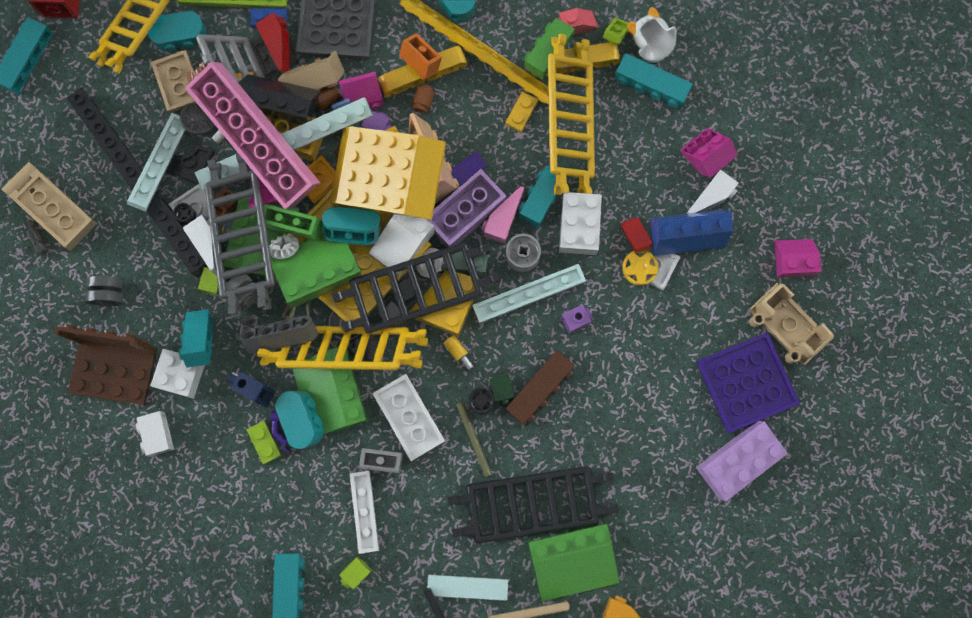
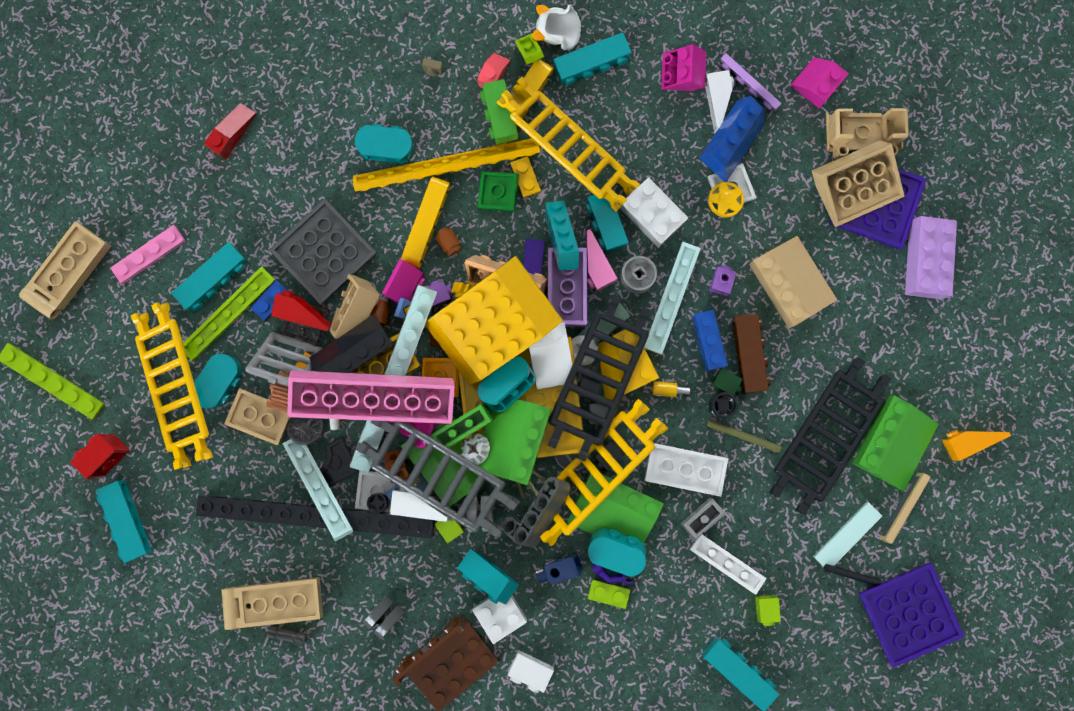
camera: 50 degrees left, 5 degrees up
(420, 56) = (417, 213): orange brick -> none
(492, 101) = (498, 191): none -> green tile
(497, 169) = (561, 235): none -> teal brick
(521, 348) = (709, 340): none -> blue brick
(626, 372) = (792, 282): none -> tan slope
(636, 235) = (699, 179): red tile -> none
(745, 215) = (744, 77): none -> lavender plate
(745, 353) = (859, 182): none -> tan slope

